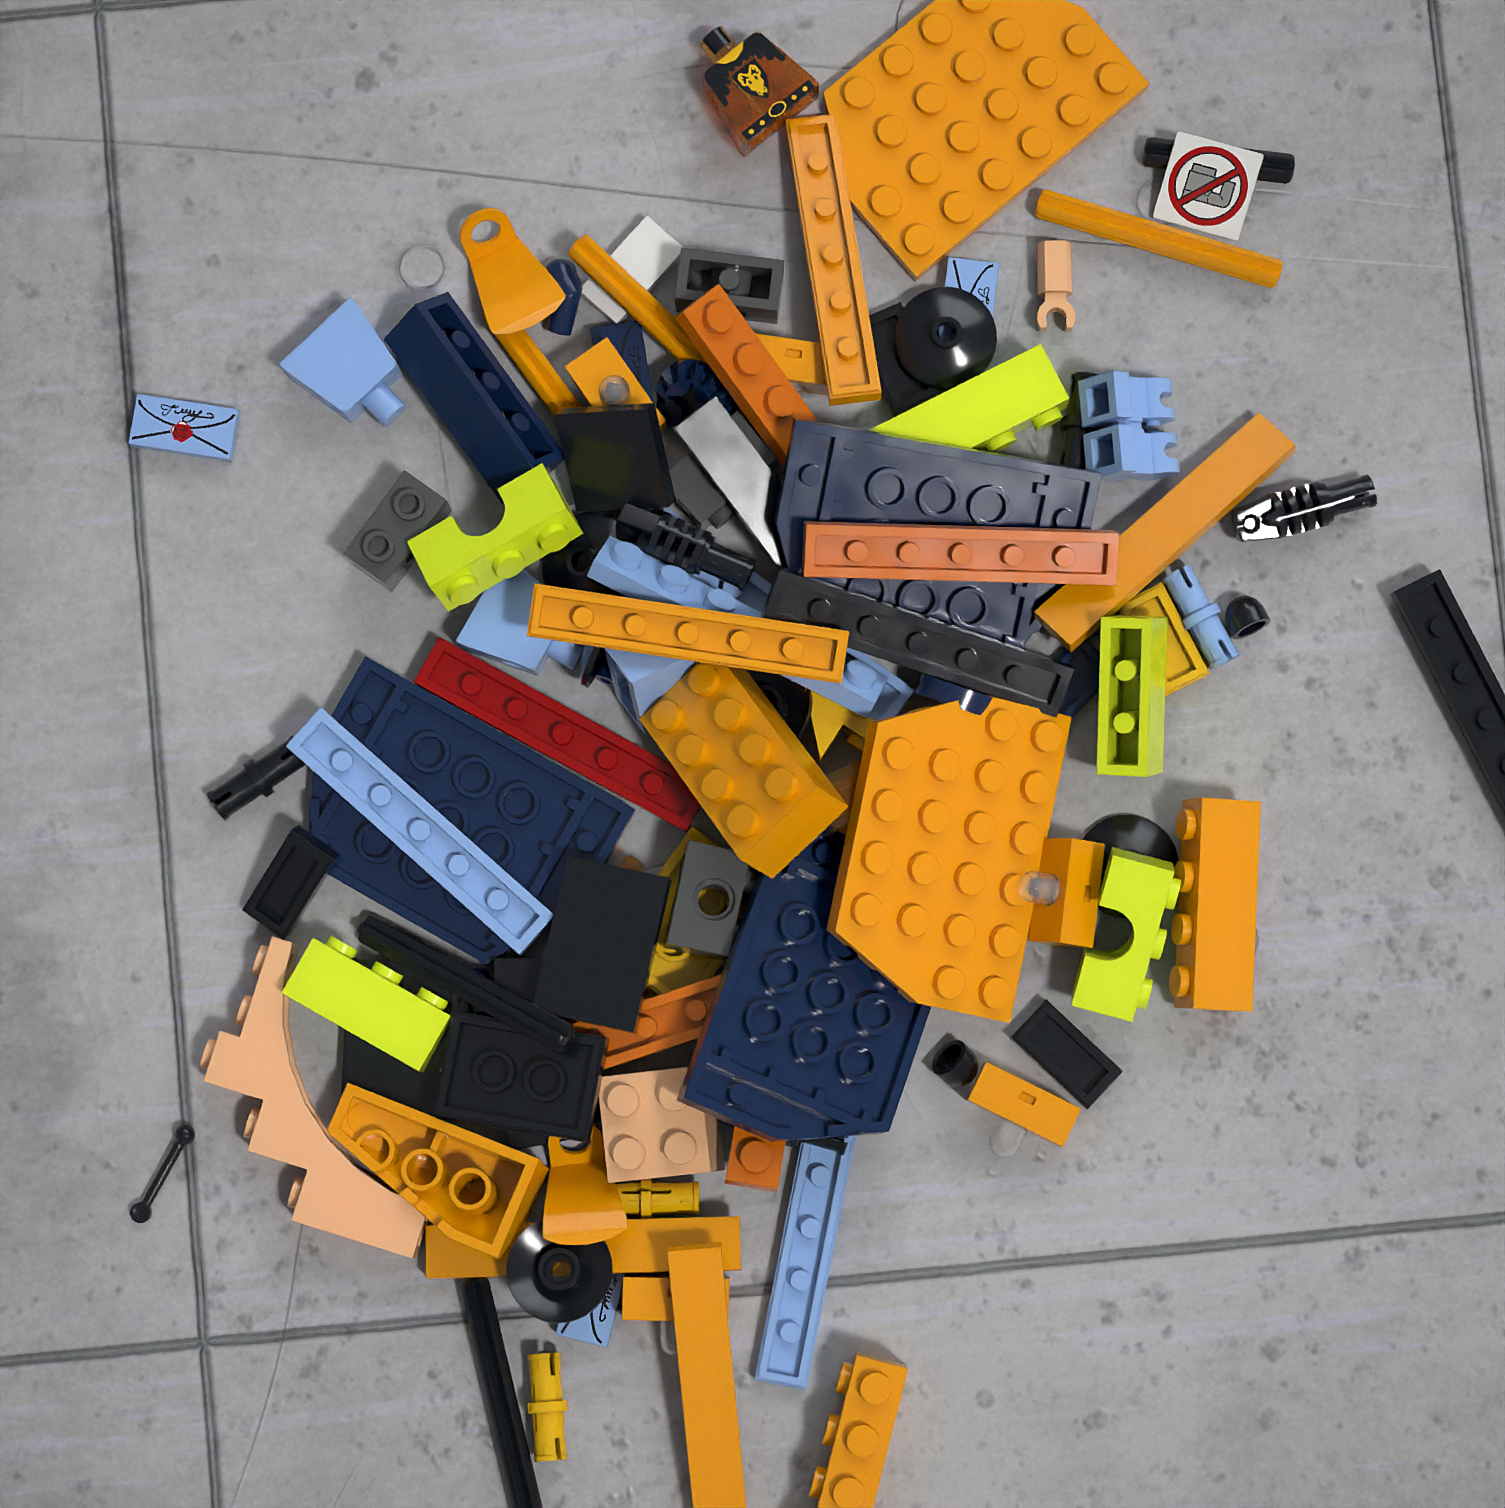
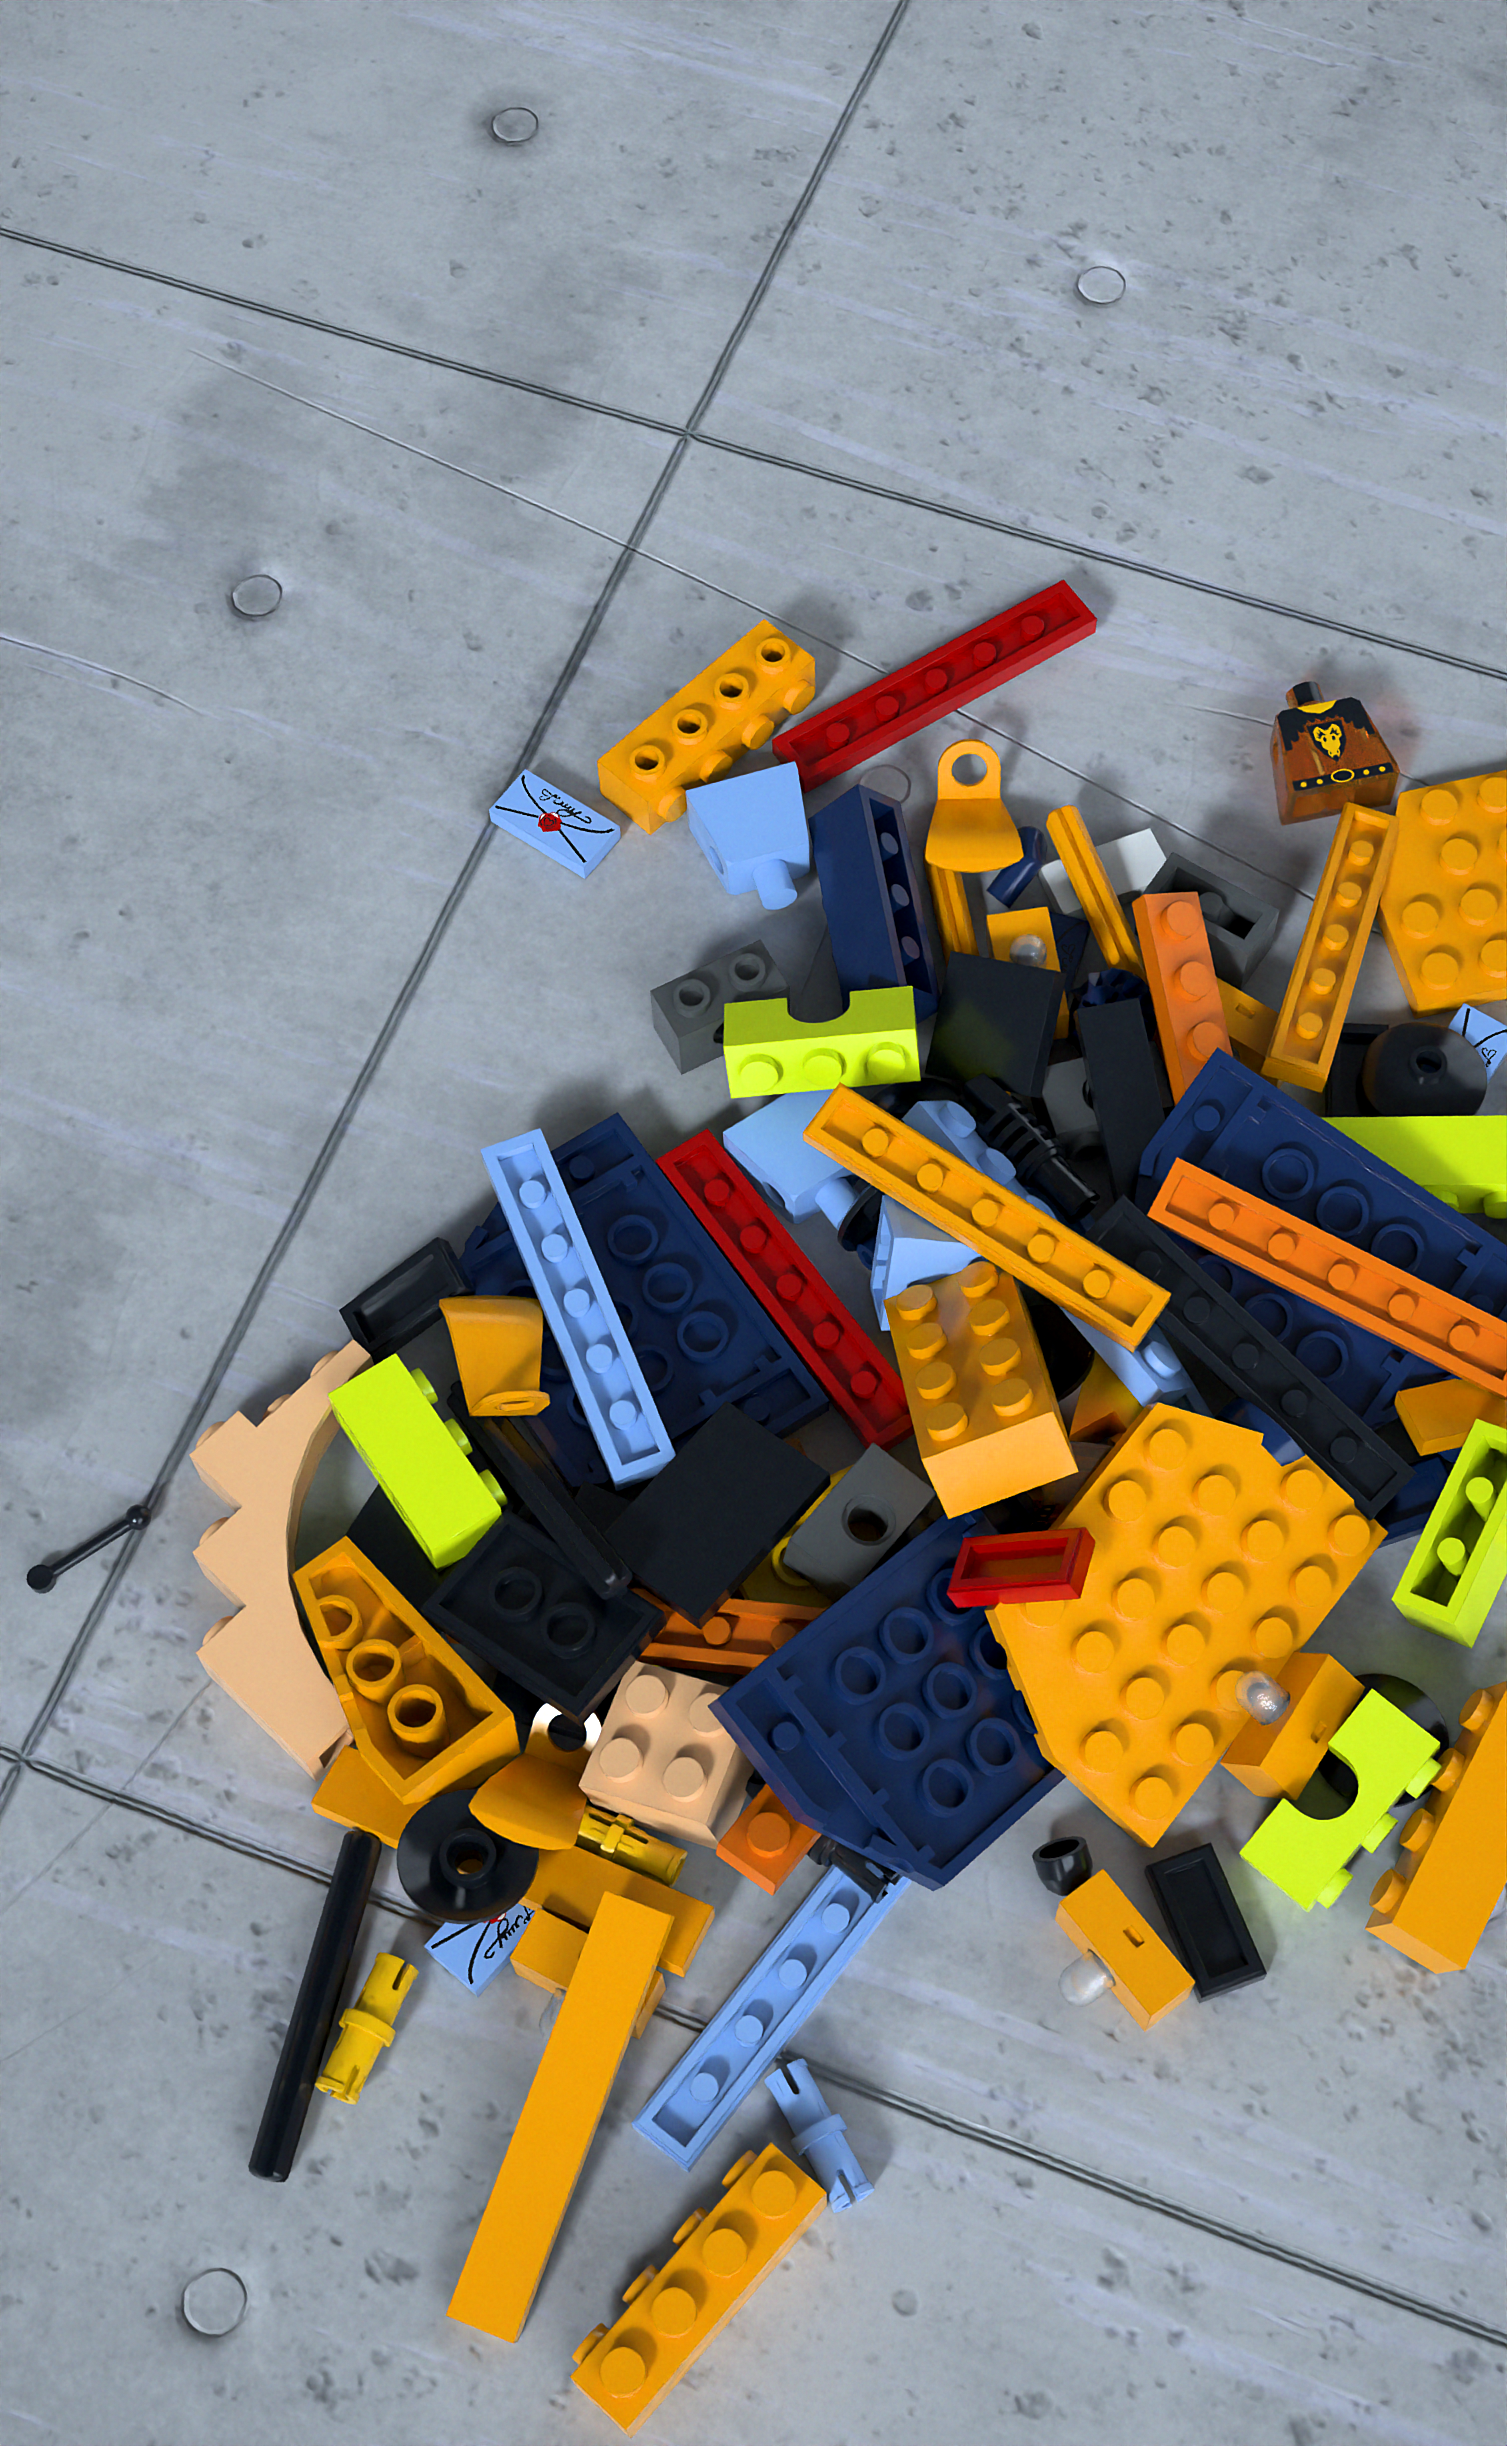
camera: 25 degrees right, 20 degrees down
(255, 780) = (430, 1187): black pin -> none
(263, 288) = (707, 726): none -> light orange brick
(381, 893) = (498, 1352): none -> light orange piece
(420, 163) = (935, 685): none -> red plate
(840, 893) = (1021, 1567): none -> red tile
(880, 1325) = (819, 2135): none -> light blue pin

